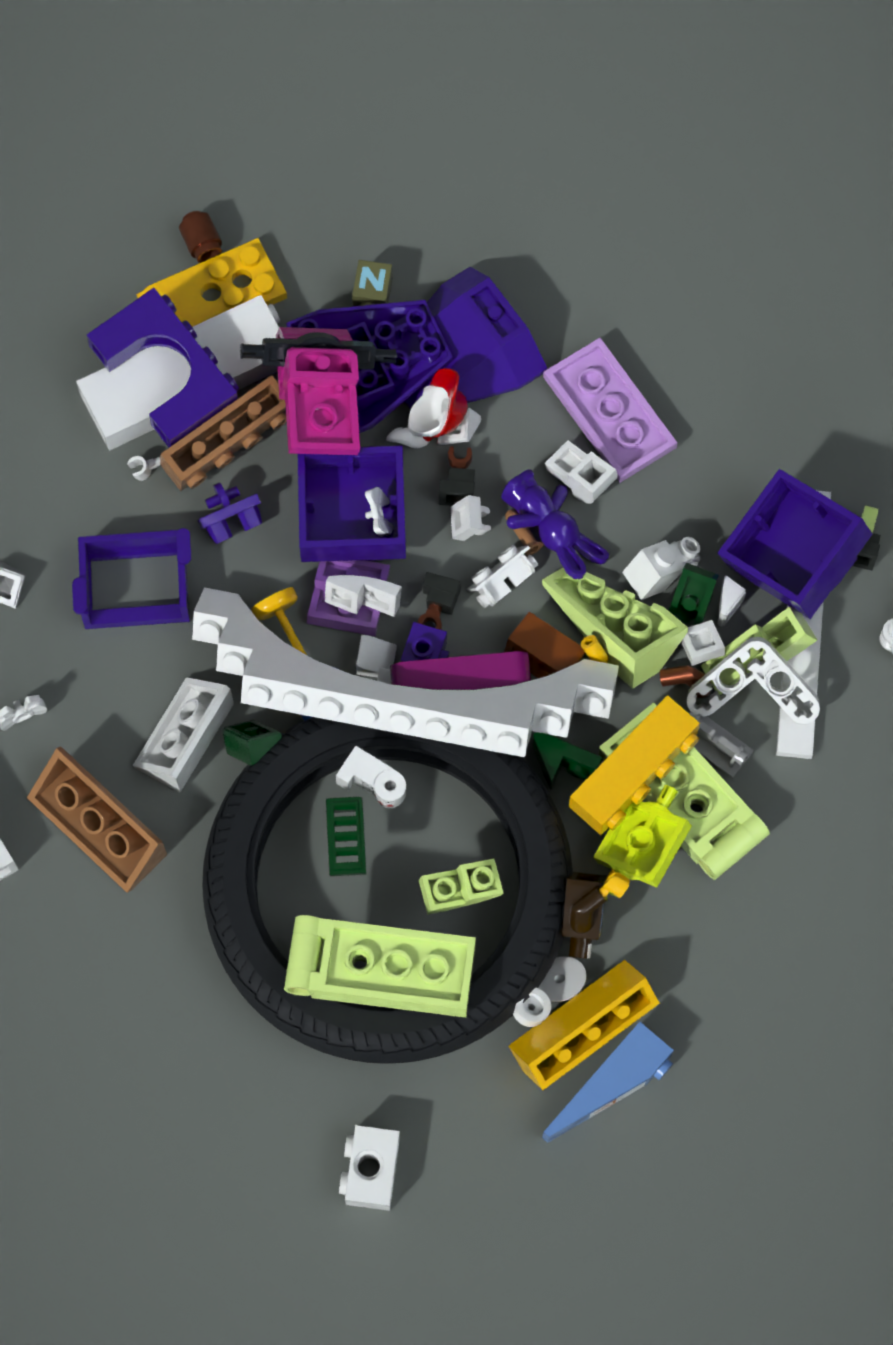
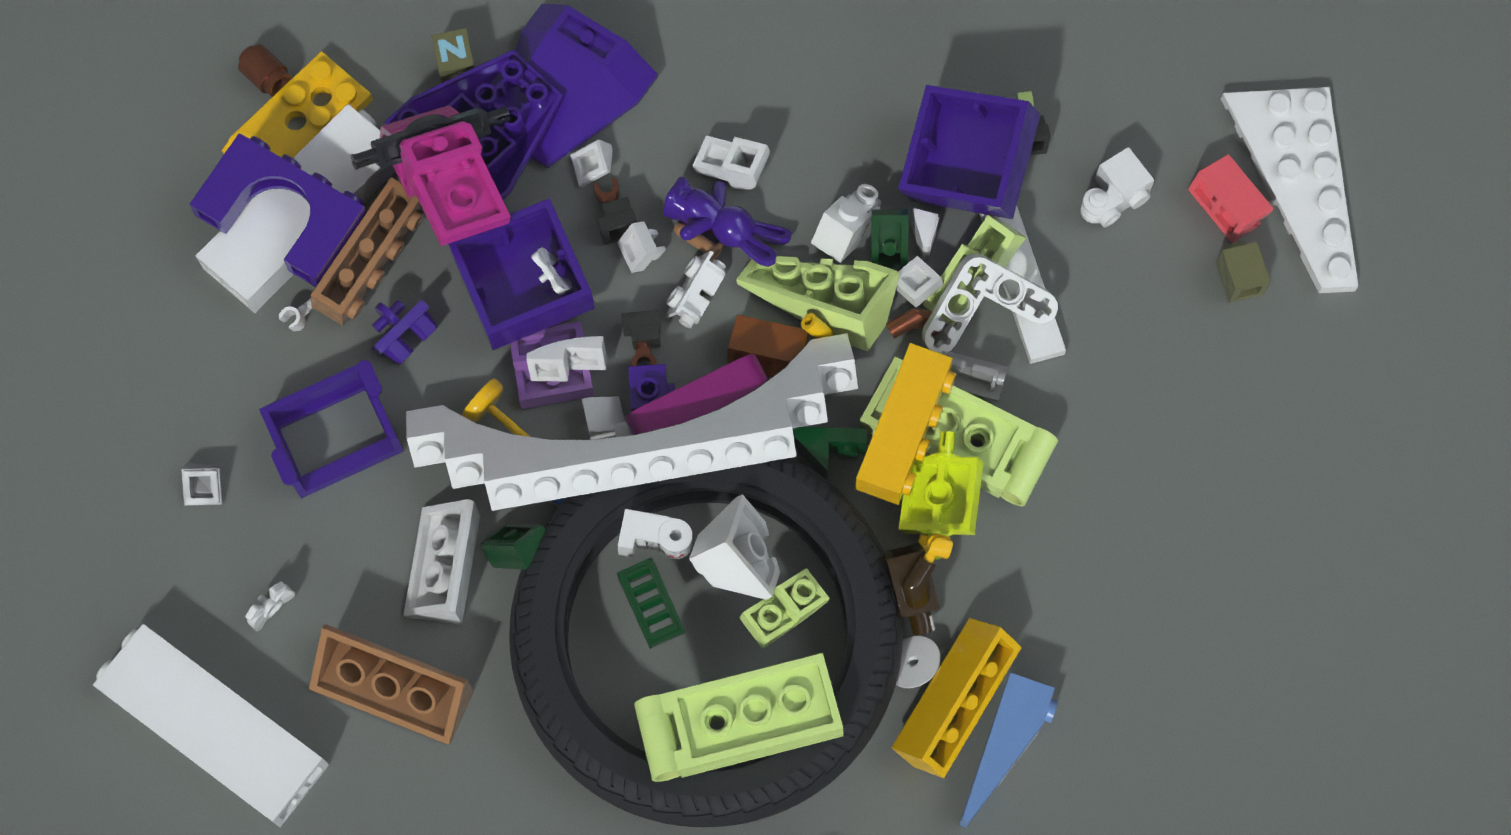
camera: 20 degrees left, 0 degrees up
(435, 412) = (567, 154): white hair -> none
(437, 821) = (734, 552): none -> white slope
(534, 1009) = (903, 701): white tile -> none
(610, 409) = (734, 91): lavender plate -> none

